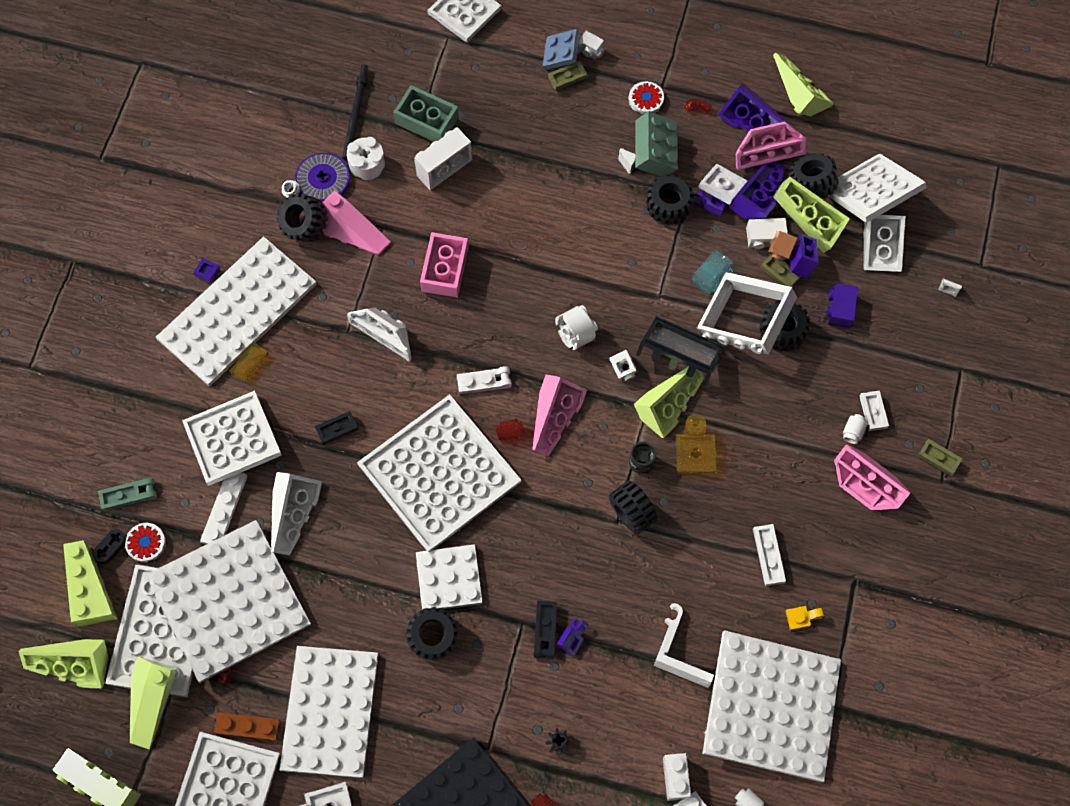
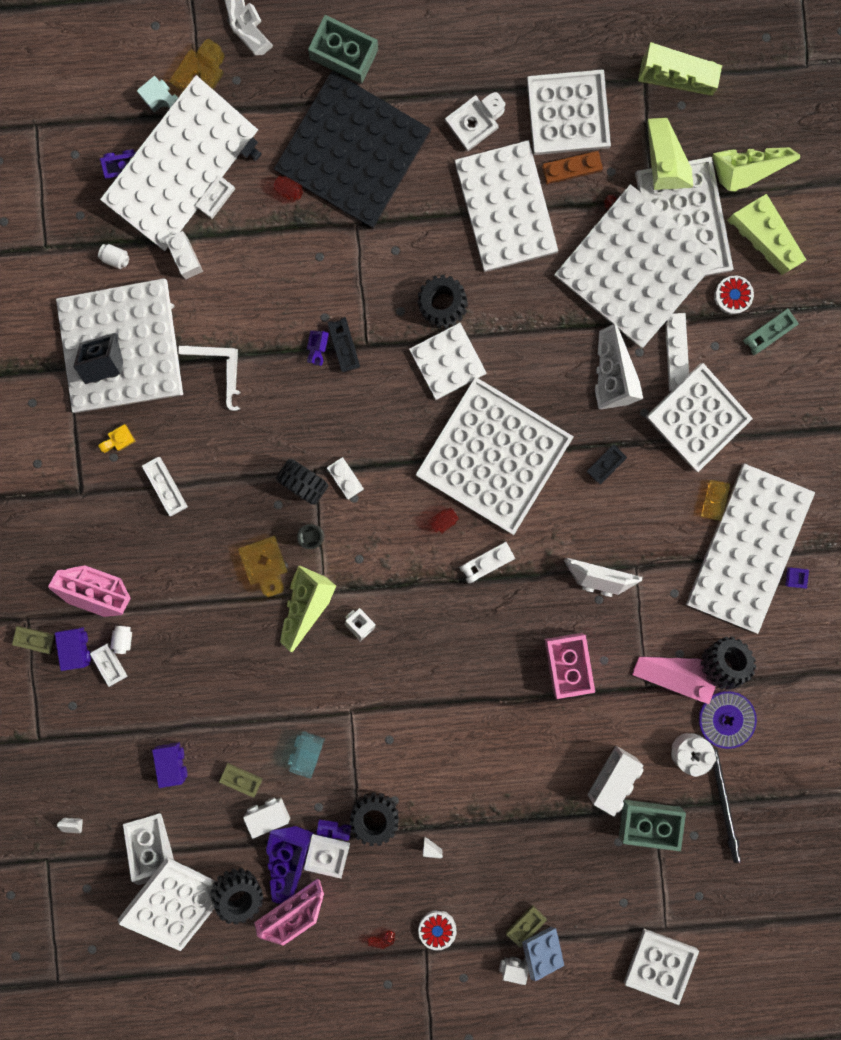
camera: 160 degrees right, 20 degrees up
(108, 543) = (768, 281): black beam -> none
(288, 185) = (758, 694): white plate -> none
(556, 406) = (409, 559): bright pink wedge -> none
(562, 737) = (297, 243): black gear -> none
(576, 327) = (417, 645): white brick -> none
(590, 502) = (345, 478): none -> white plate
(656, 144) = (407, 875): sand green brick -> none
(682, 347) = (309, 659): black window -> none
(749, 110) = (323, 950): dark purple wedge -> none
(753, 286) = (290, 723): white window -> none
(782, 245) = (245, 805): nougat brick -> none
(796, 317) = (214, 737): black tyre -> none
(796, 695) = (98, 359): none -> black slope
(800, 92) = (278, 992): yellowish green wedge -> none
(804, 256) = (221, 802): dark purple brick -> none
(811, 213) = (226, 852): yellowish green wedge -> none
(903, 434) = (72, 648): none -> dark purple brick

